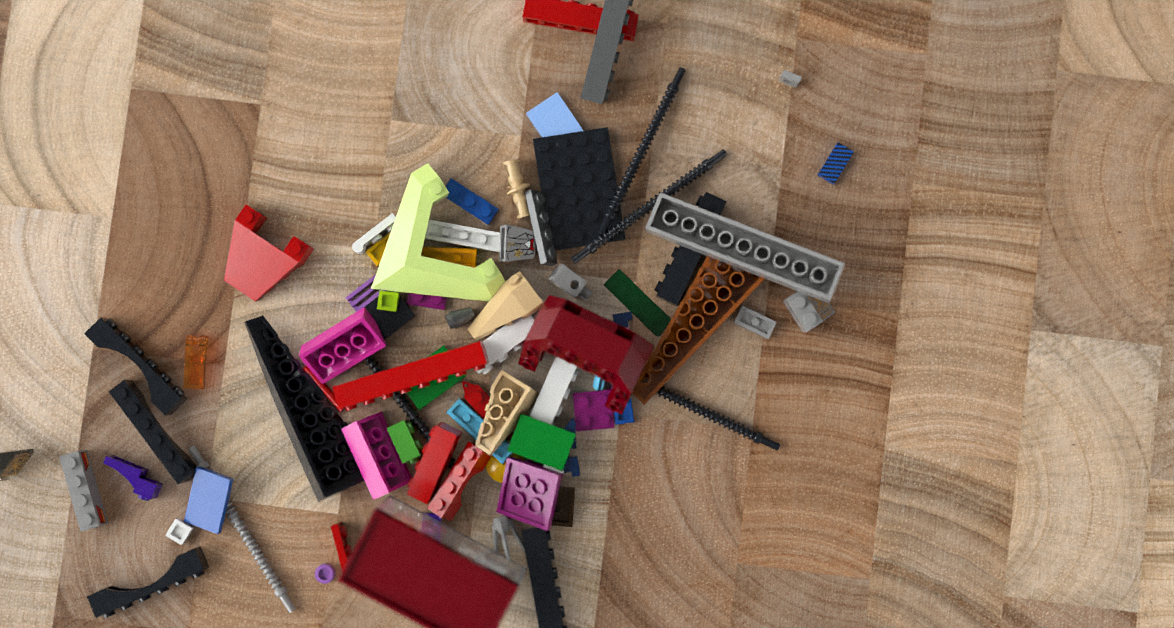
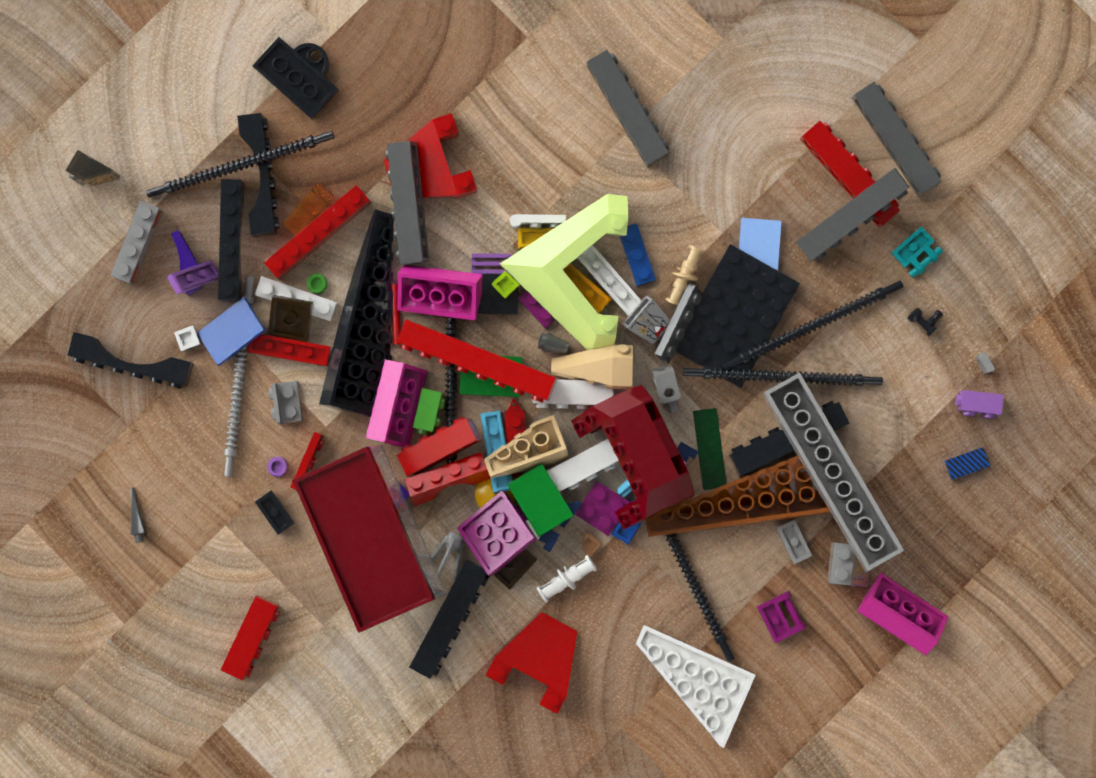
camera: 40 degrees right, 0 degrees up
(77, 426) = (170, 186): none -> black hose
(108, 267) = (297, 75): none -> black plate
(144, 483) = (193, 277): none -> medium lavender tile
(215, 374) = (317, 232): none -> red brick
(239, 436) = (321, 307): none -> white plate
(245, 454) = (290, 318): none -> dark brown plate
(246, 412) = (317, 283): none -> bright green tile
(264, 478) = (290, 350): none -> red plate
(265, 297) = (407, 202): none -> dark grey brick
(292, 520) = (286, 402): none -> light grey bracket
(349, 610) = (274, 512): none -> black plate
(376, 98) = (627, 108): none -> dark grey brick
(606, 445) = (590, 544): none -> medium nougat tile
(608, 484) = (566, 578): none -> white piece
(633, 556) = (542, 652): none -> red wedge
(669, 36) = (913, 247): none -> teal plate
(726, 84) = (927, 325): none -> black piece
(771, 480) = (704, 682): none -> white wing
(787, 391) = (775, 619): none -> magenta plate
(810, 110) = (979, 402): none -> medium lavender brick
(878, 311) = (903, 614): none -> dark pink slope

